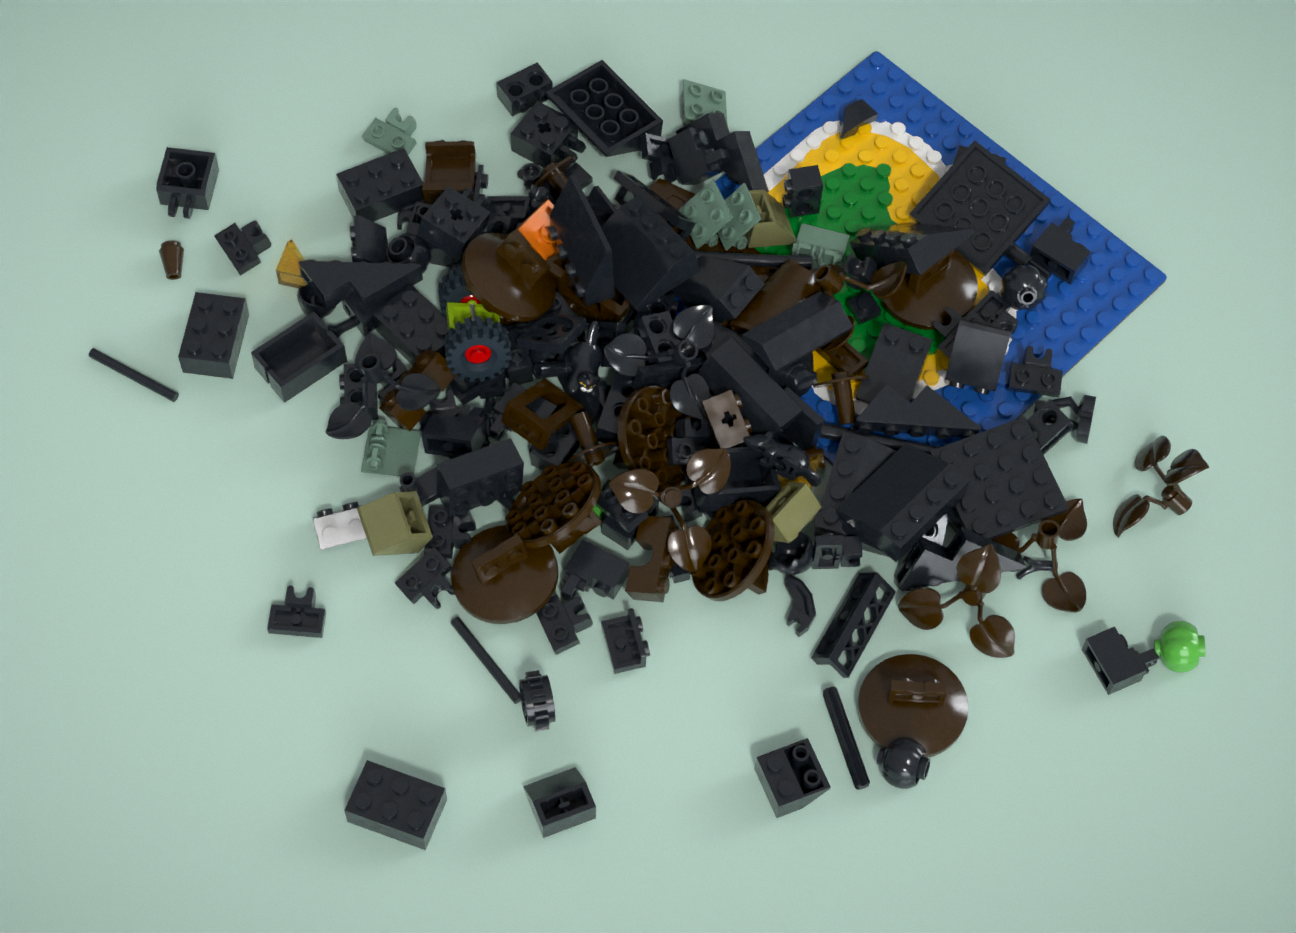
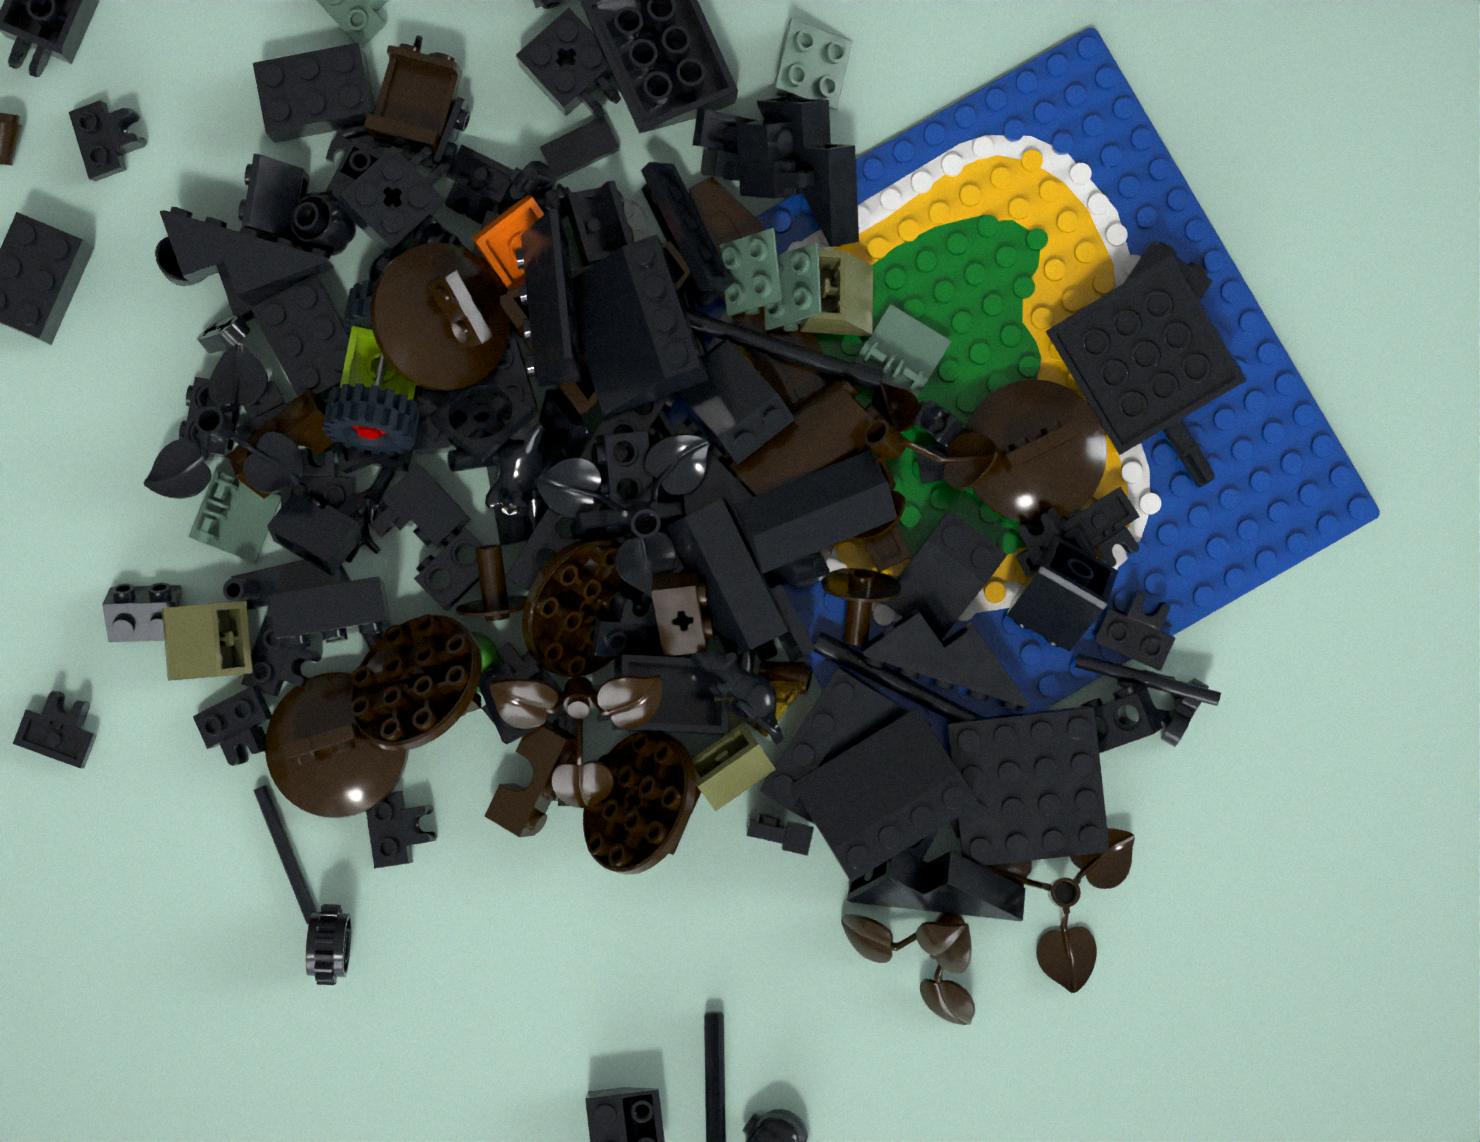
camera: 15 degrees right, 25 degrees up
(288, 267) = (163, 188): clear yellow slope -> none
(299, 356) = (138, 346): black piece -> none
(340, 328) = (204, 308): black bar -> none
(358, 334) = (223, 334): none -> black beam
(396, 805) = (120, 1031): black brick -> none
(529, 424) = (416, 545): dark brown panel -> none
(530, 170) = (540, 112): black plate -> none
(554, 174) = (566, 151): dark brown piece -> none
(560, 802) = (325, 1080): black slope -> none
(594, 569) = (454, 764): black hinge -> none
(625, 642) = (467, 882): black bracket -> none
(792, 557) = (720, 826): black hair -> none
(803, 191) = (902, 263): black brick -> none
(803, 605) = (718, 881): black piece -> none
(851, 617) = (769, 927): black fence -> none
(855, 116) = (1022, 144): black slope -> none
(913, 700) = (814, 1064): dark brown bracket -> none
(914, 243) = (1024, 400): black slope -> none
(1024, 287) = (1165, 498): black plant -> none
(1035, 565) = (1043, 908): black bar -> none
(1060, 253) = (1235, 447): black hinge -> none
(1060, 398) = (1148, 679): none -> black bar
(1114, 662) = (1094, 1078): black hinge -> none
(1180, 646) = (1188, 1078): bright green plant -> none
(1182, 467) = (1269, 867): dark brown plant -> none

